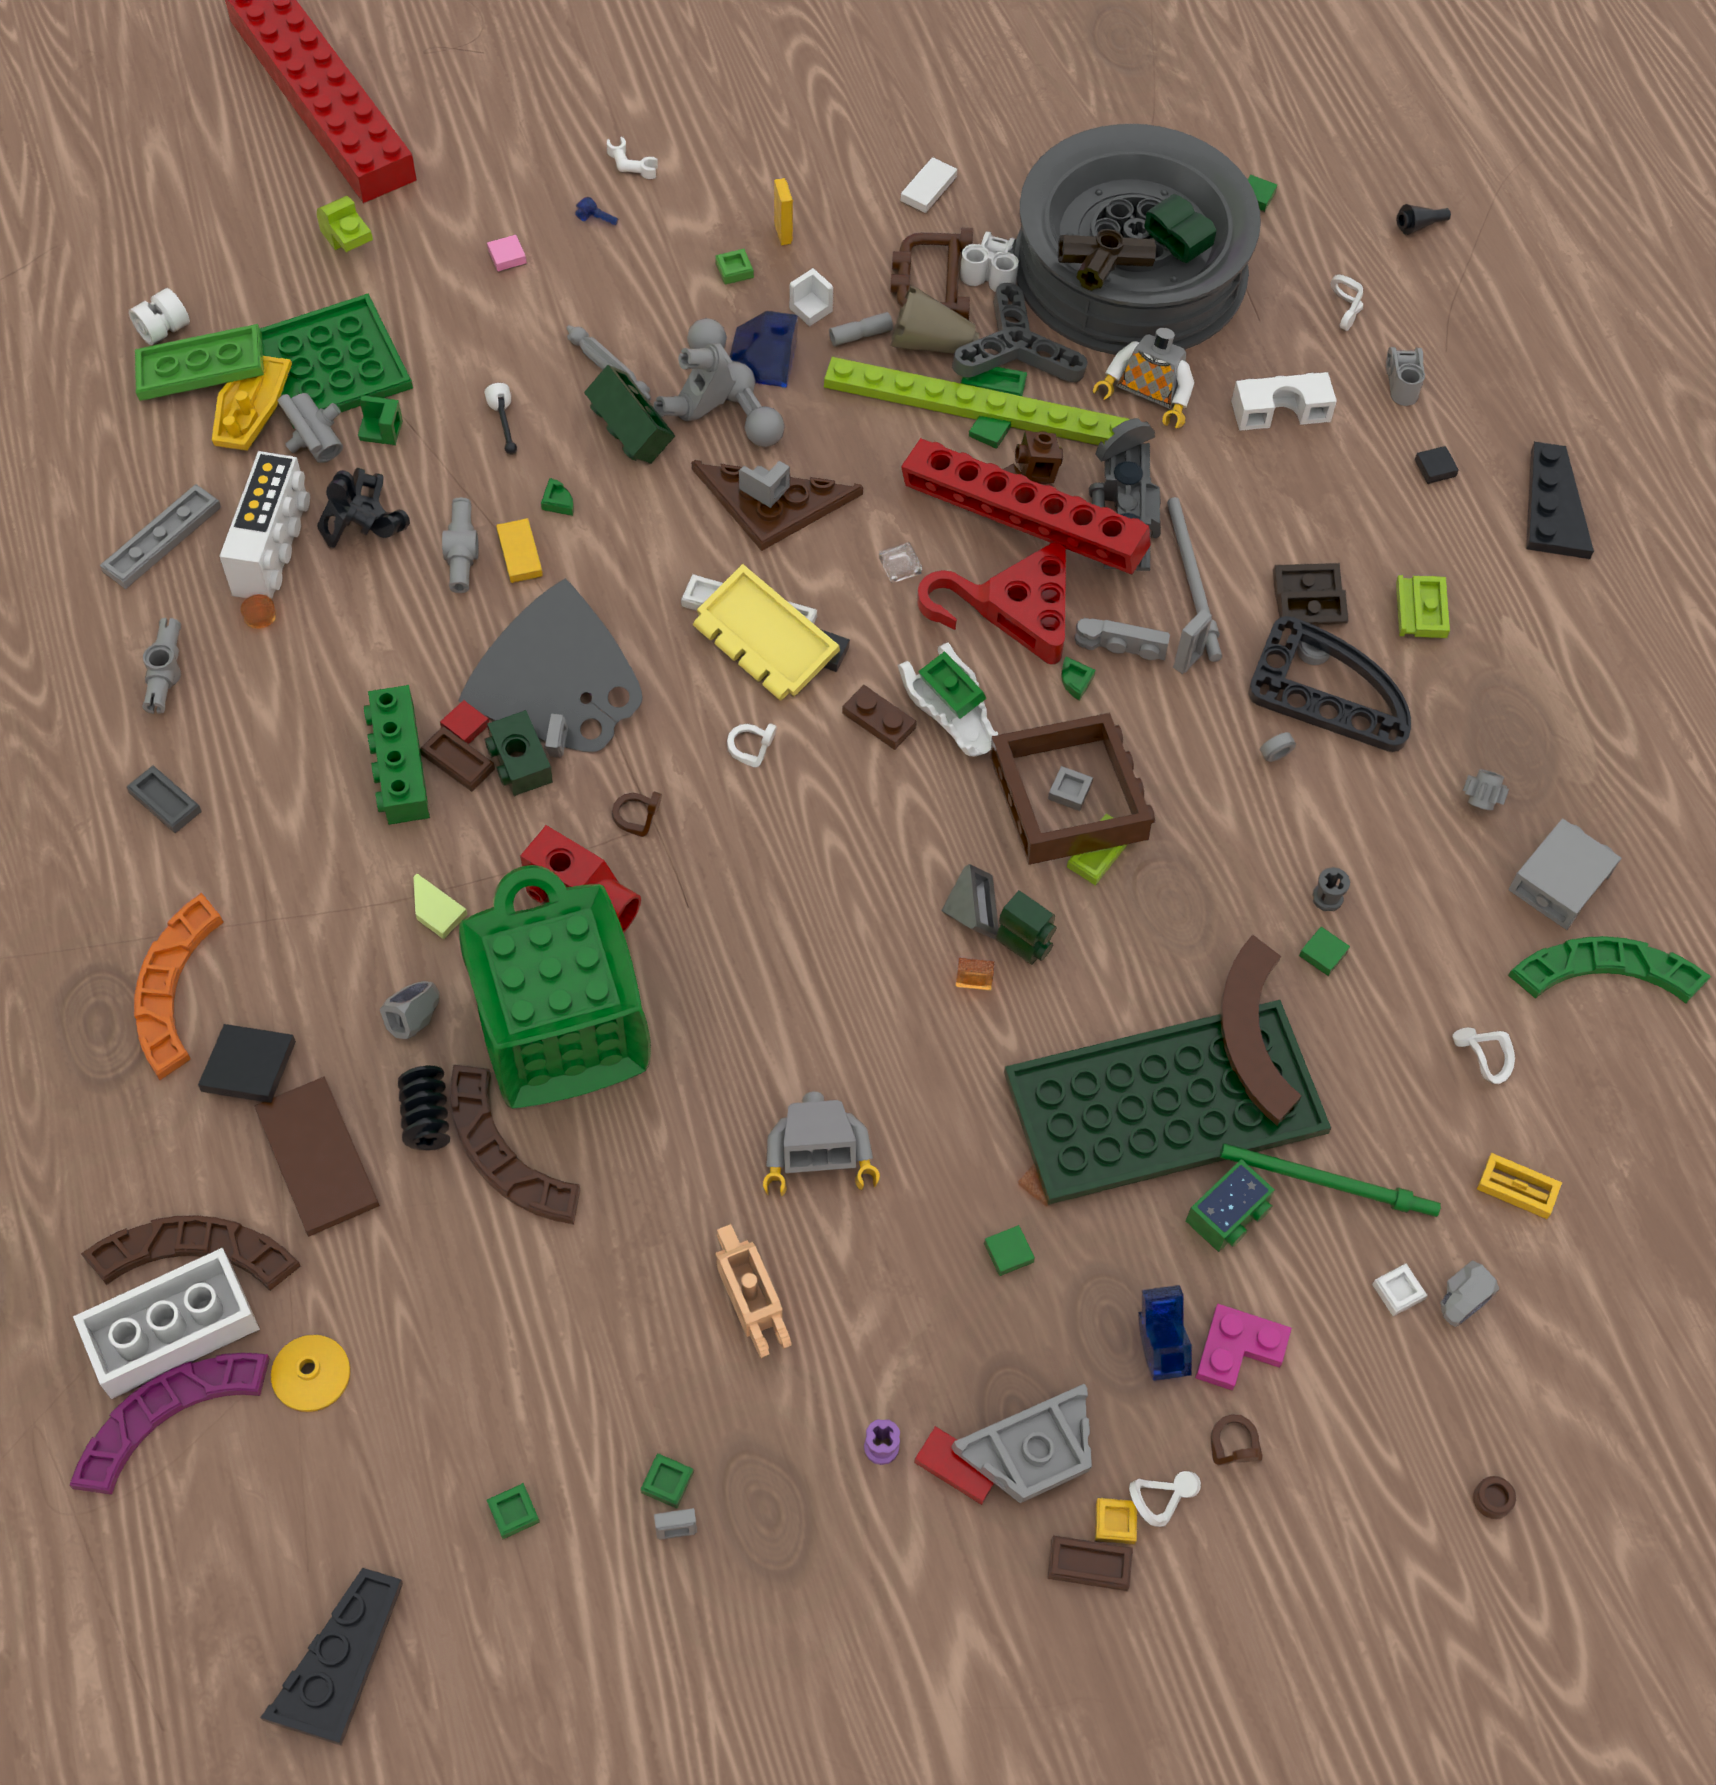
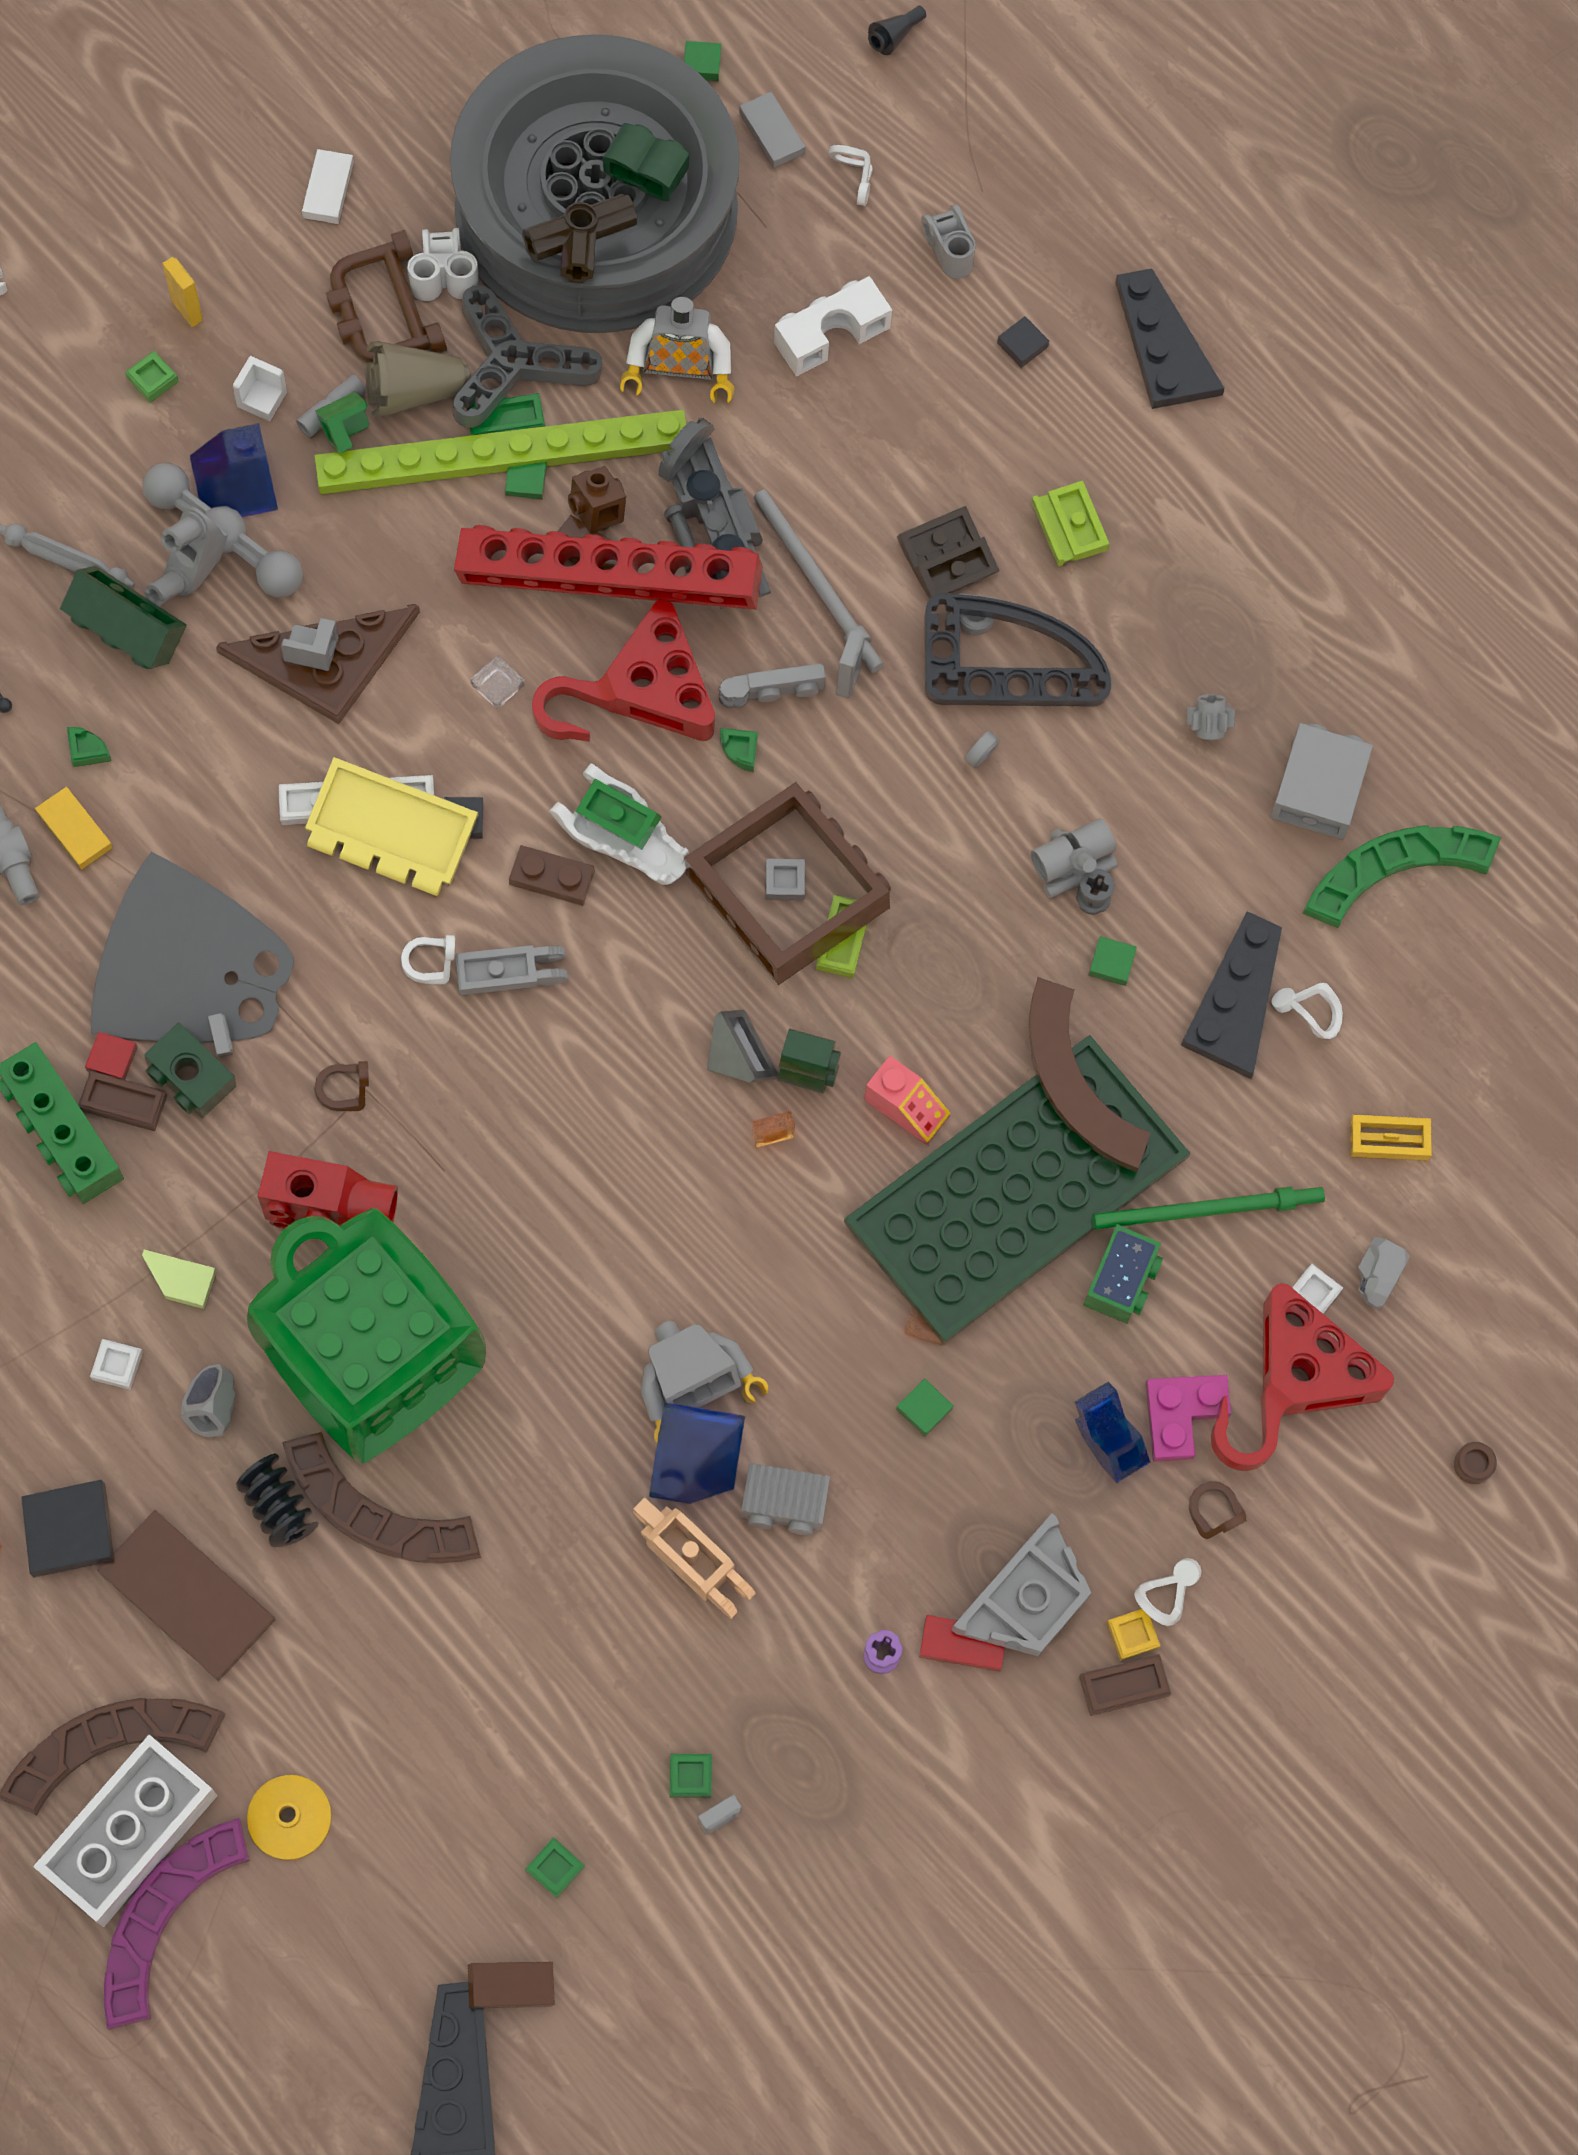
camera: 25 degrees left, 10 degrees up
(352, 953) = (116, 1364): none -> white tile
(425, 1595) = (511, 1984): none -> reddish brown tile
(791, 1205) = (696, 1453): none -> clear blue slope
(812, 772) = (508, 969): none -> light grey hinge
(853, 1276) = (784, 1499): none -> light grey brick
(865, 339) = (342, 420): none -> green panel
(1098, 993) = (906, 1100): none -> coral slope
(1293, 255) = (772, 129): none -> light grey tile
(1323, 851) = (1072, 855): none -> light grey pin
(1379, 1373) = (1296, 1347): none -> red piece
(1420, 1023) = (1235, 1004): none -> black wing

